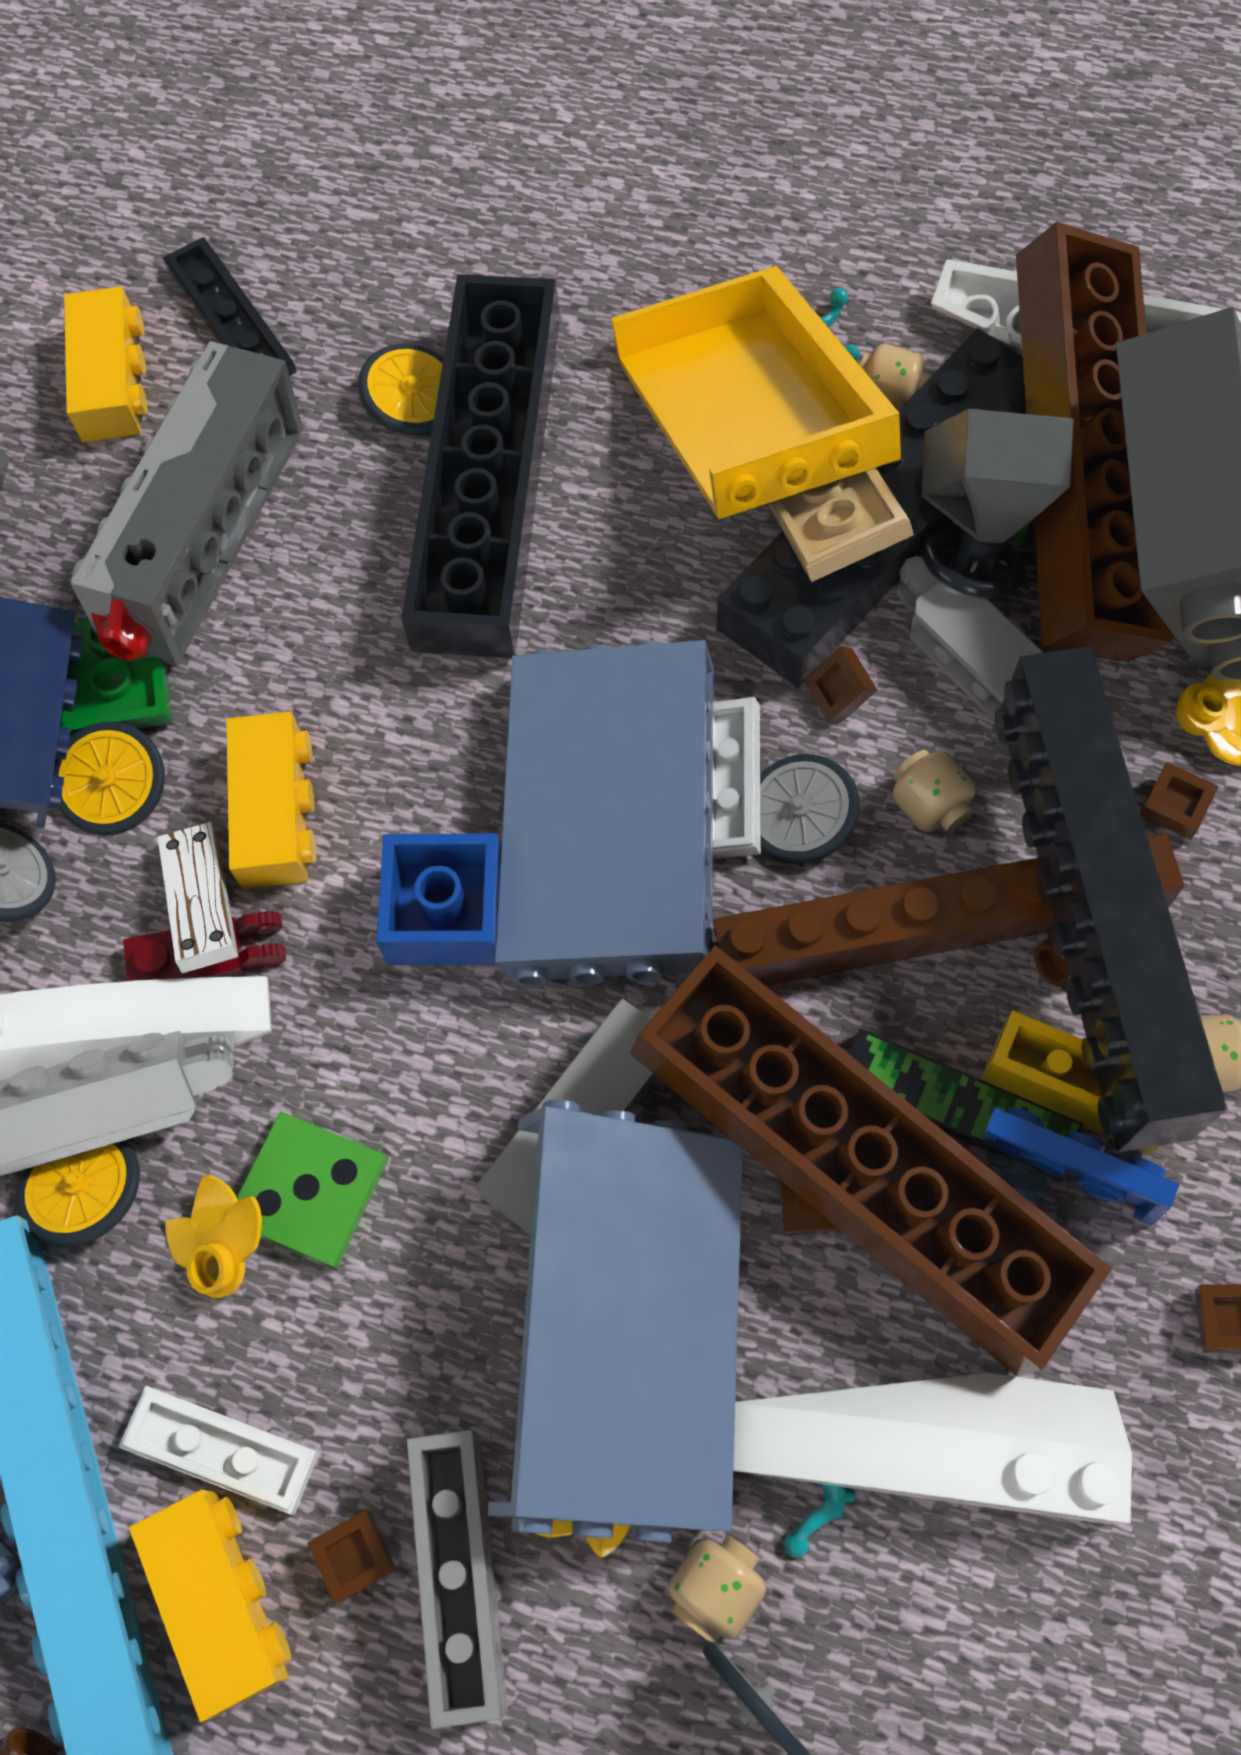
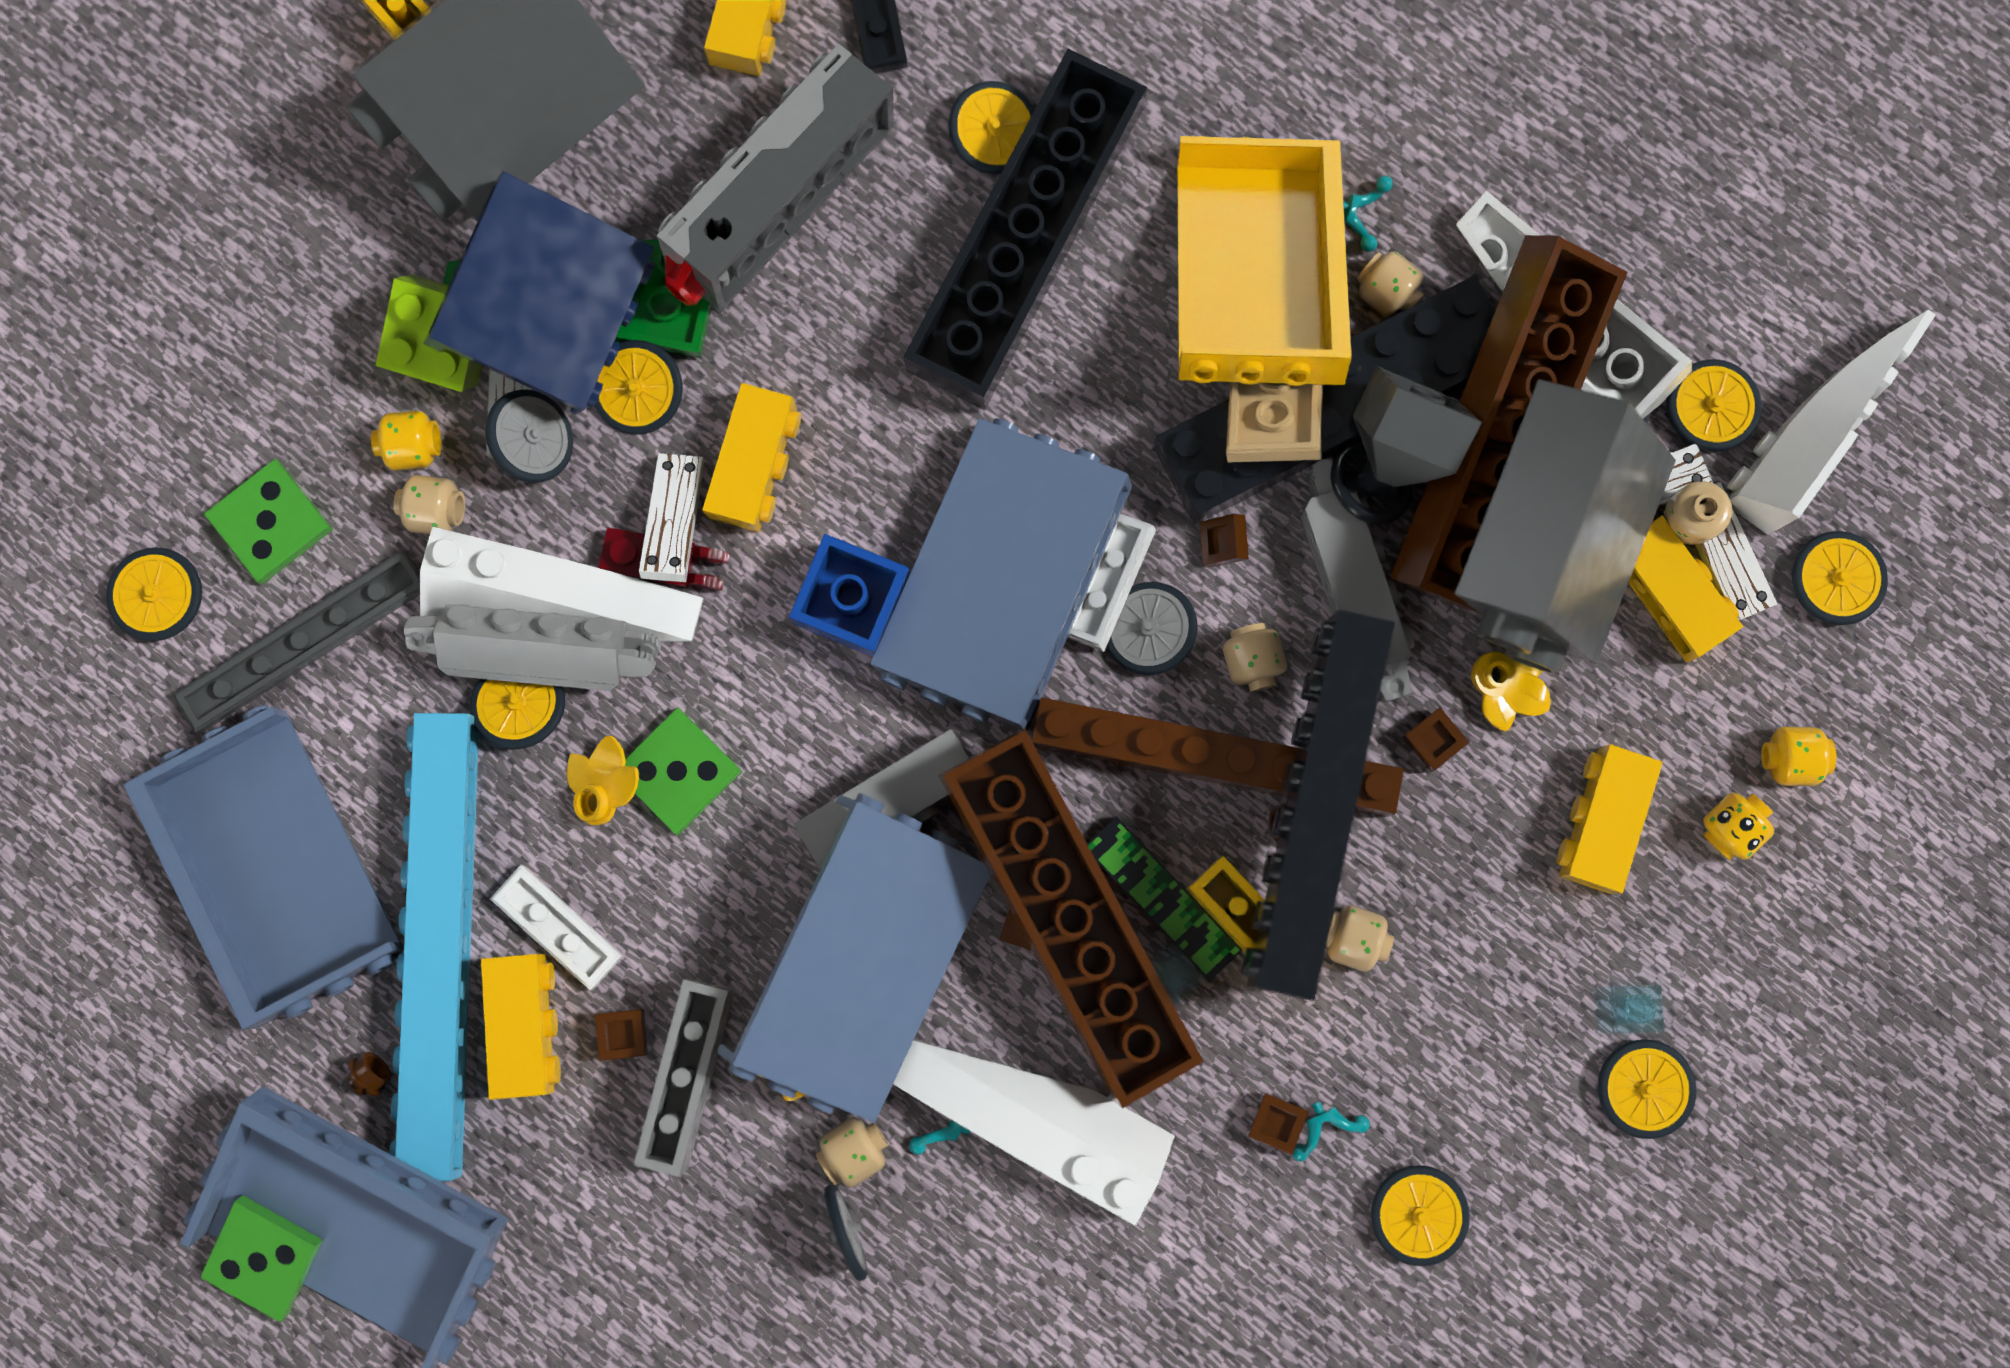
camera: 20 degrees right, 15 degrees up
(1099, 1174) = (1218, 979): blue wing -> none

